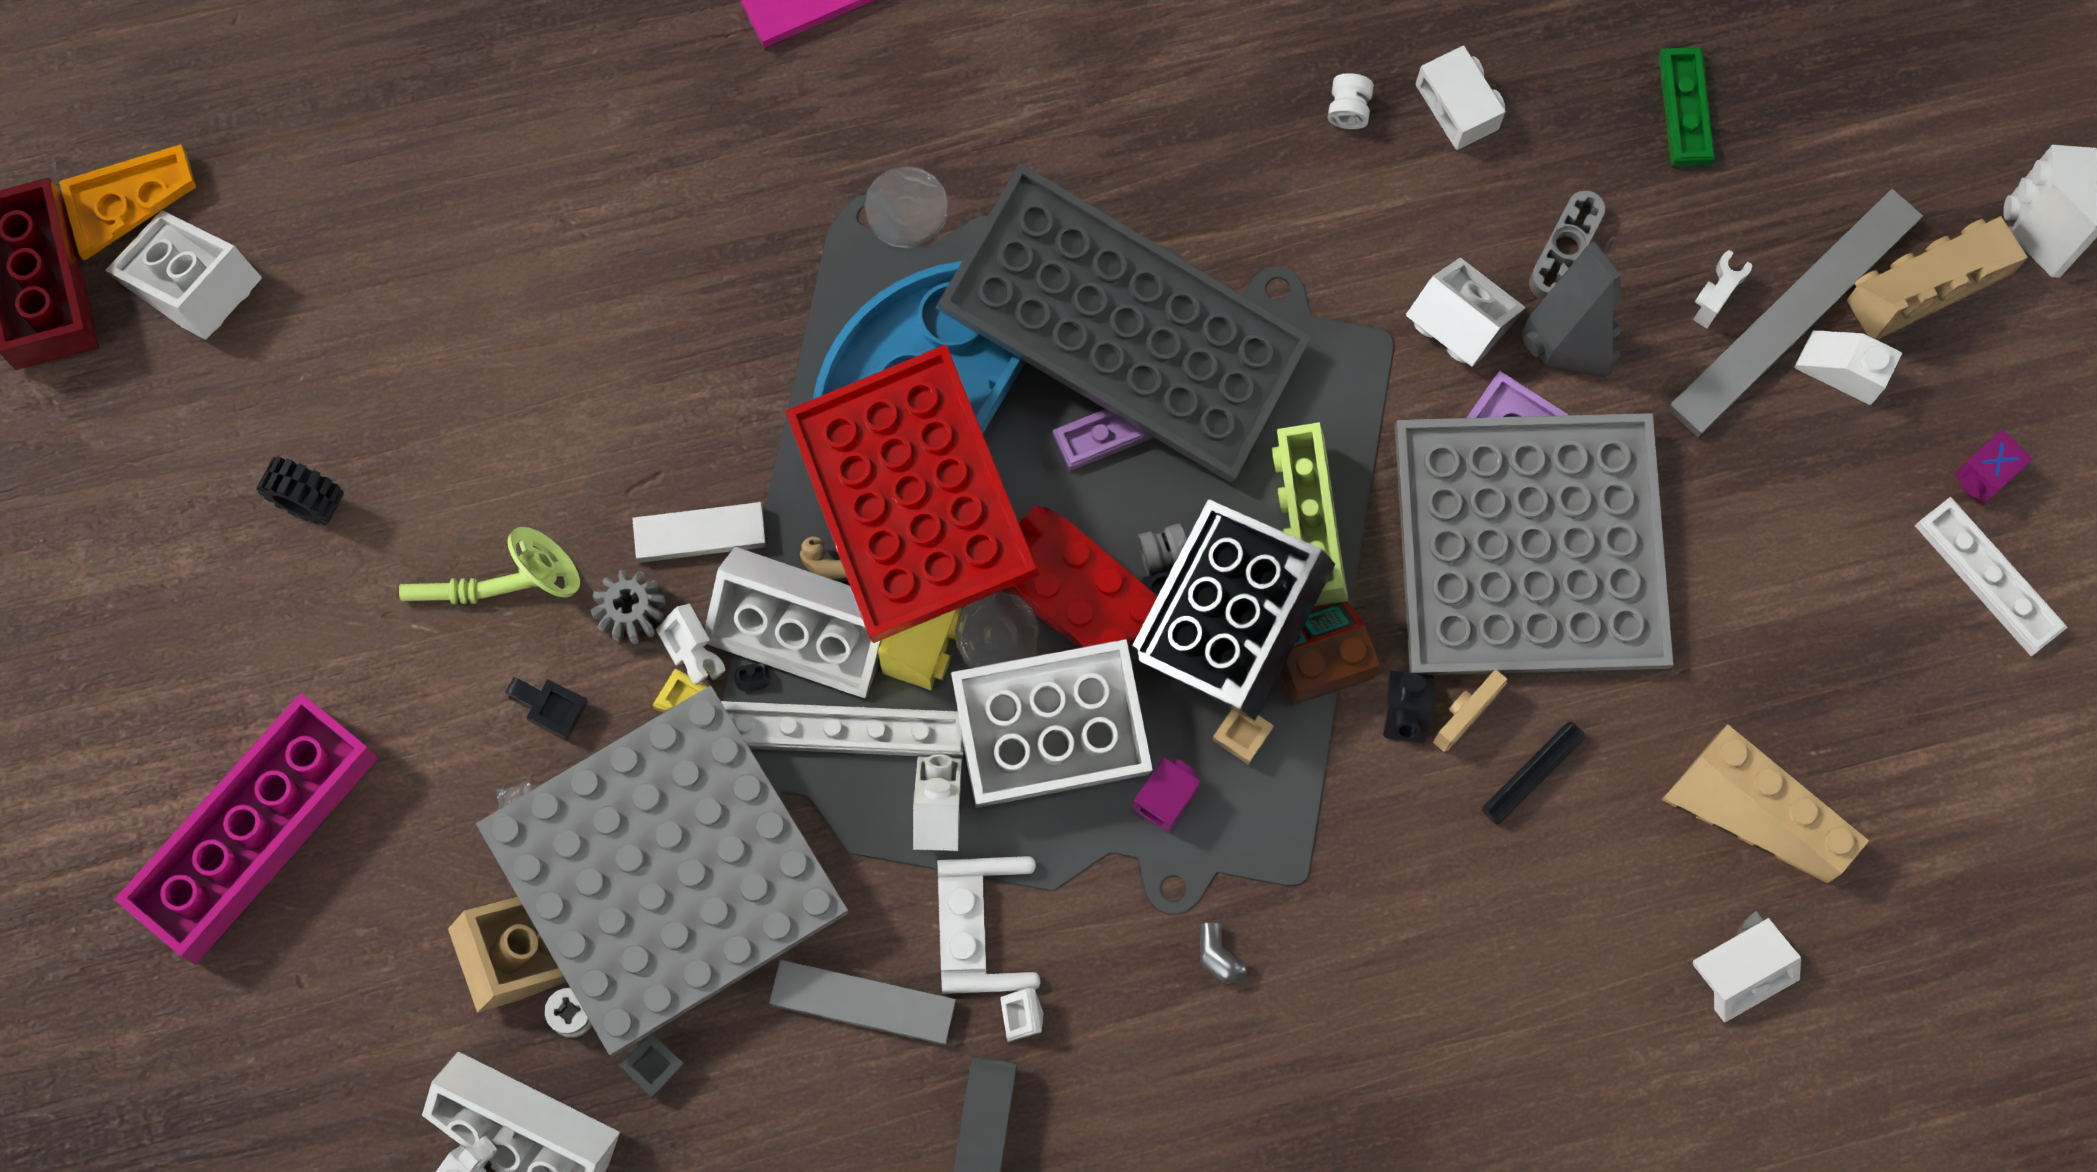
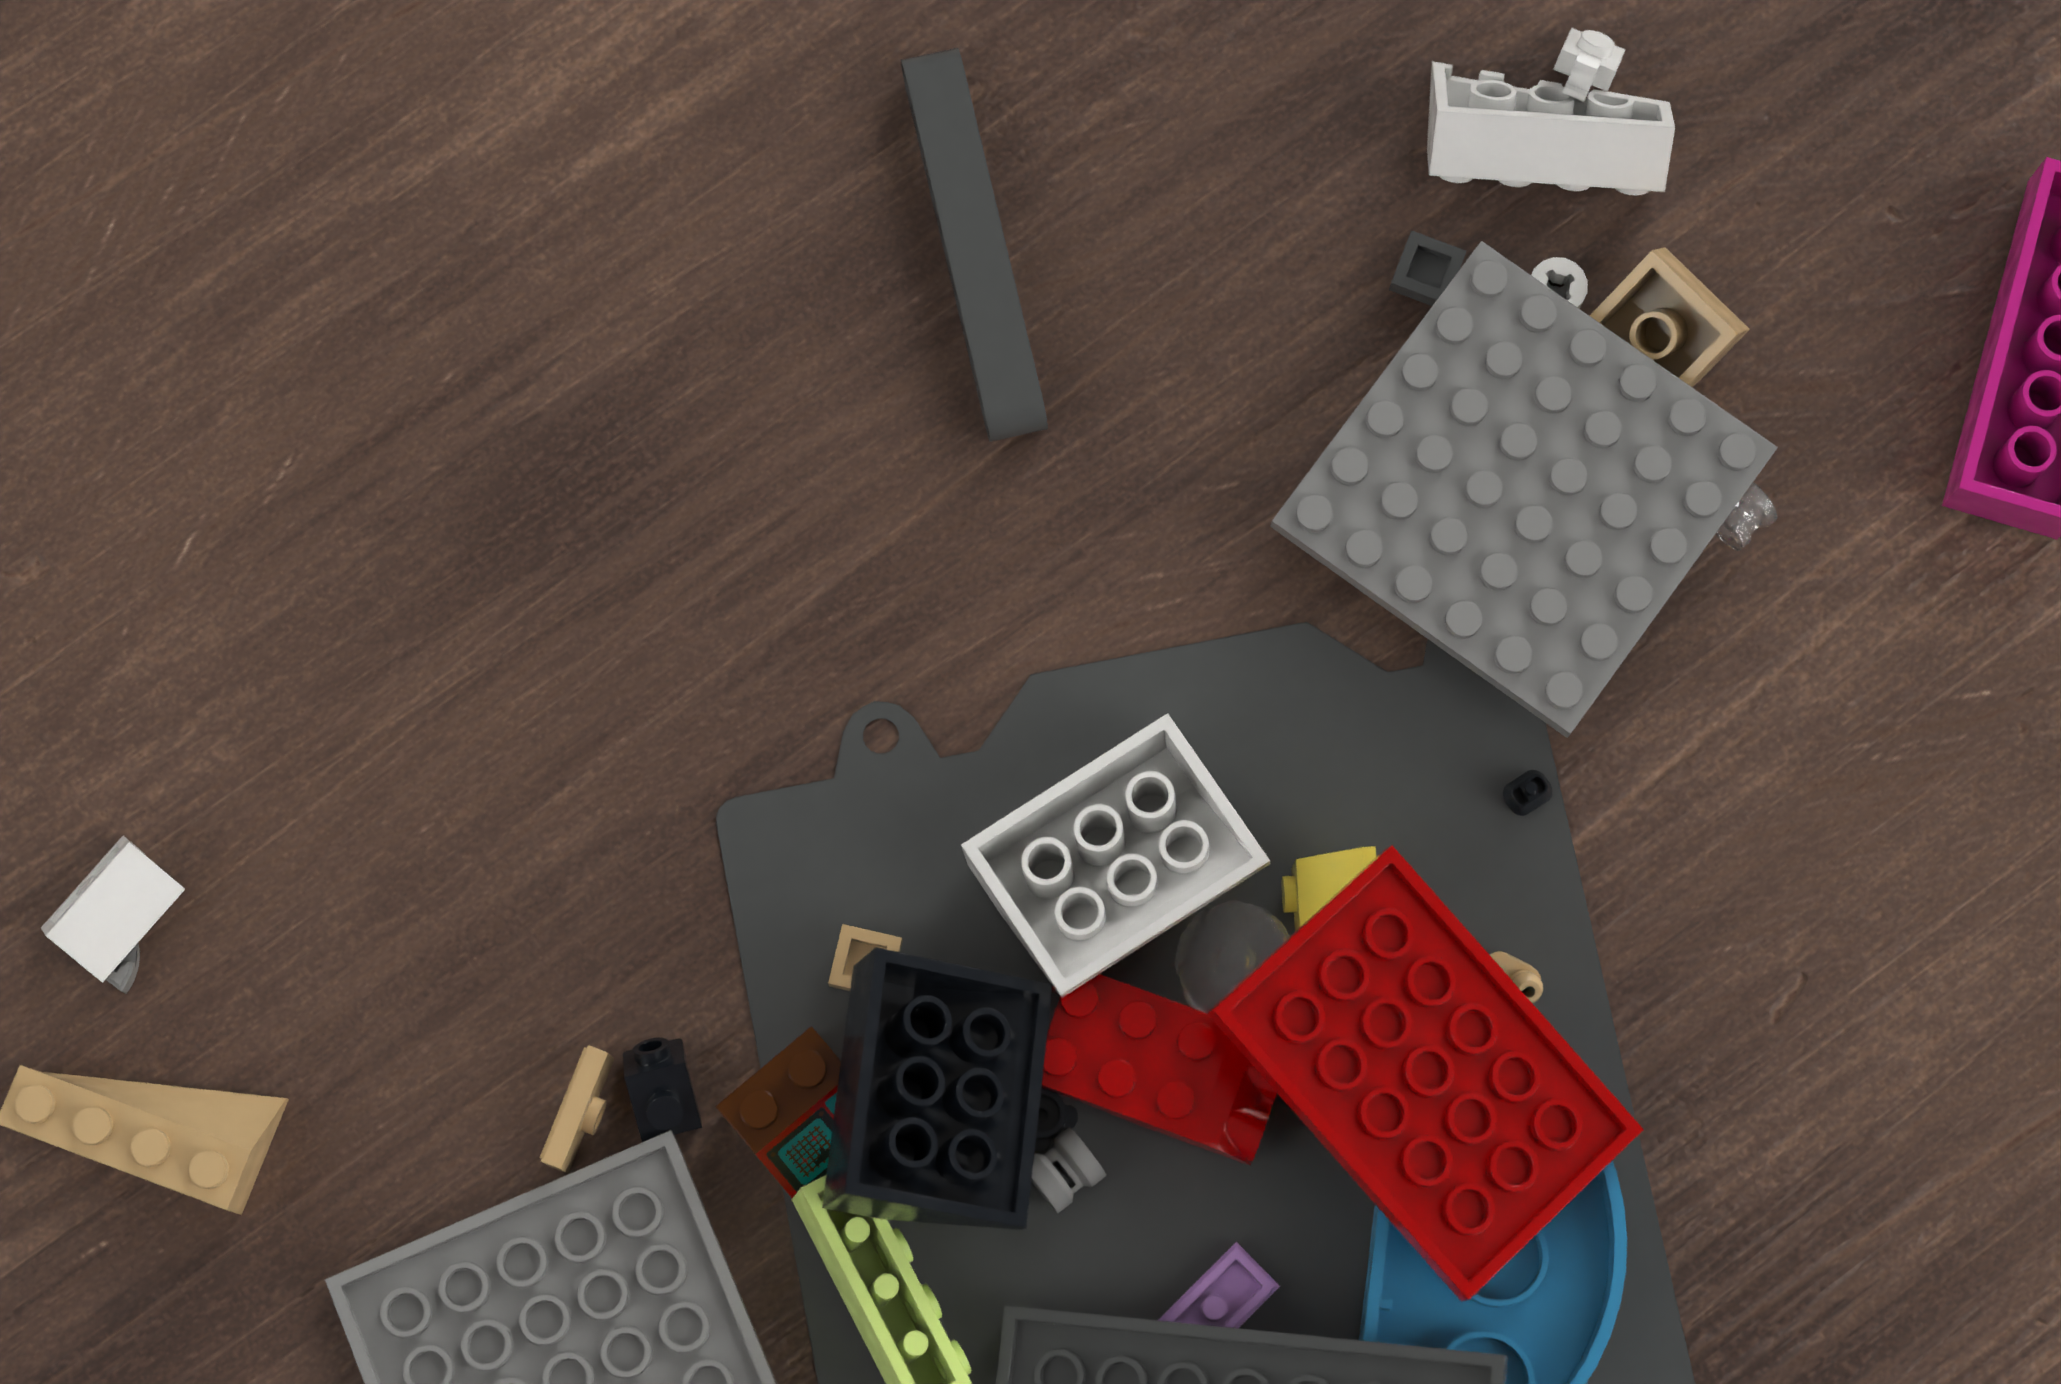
camera: 160 degrees right, 5 degrees up
(535, 569) = (1870, 801): yellowish green dish -> none
(551, 708) = (1758, 649): black plate -> none
(643, 610) = (1747, 825): light grey gear -> none
(676, 690) = (1605, 736): light yellow tile -> none
(685, 643) = (1629, 797): white plate -> none
(699, 532) = (1683, 955): white tile -> none
(791, 622) = (1522, 875): white slope -> none
(847, 729) = (1388, 767): white tile -> none
(862, 1002) = (1207, 444): light grey tile -> none
(937, 803) = (1221, 715): white slope -> none
(964, 927) = (1123, 583): white plate -> none
(1022, 1014) = (1005, 501): white slope -> none
(1167, 793) = (932, 841): magenta brick -> none
(1217, 959) = (792, 662): flat silver arm -> none
(1533, 772) = (467, 1064): black axle -> none

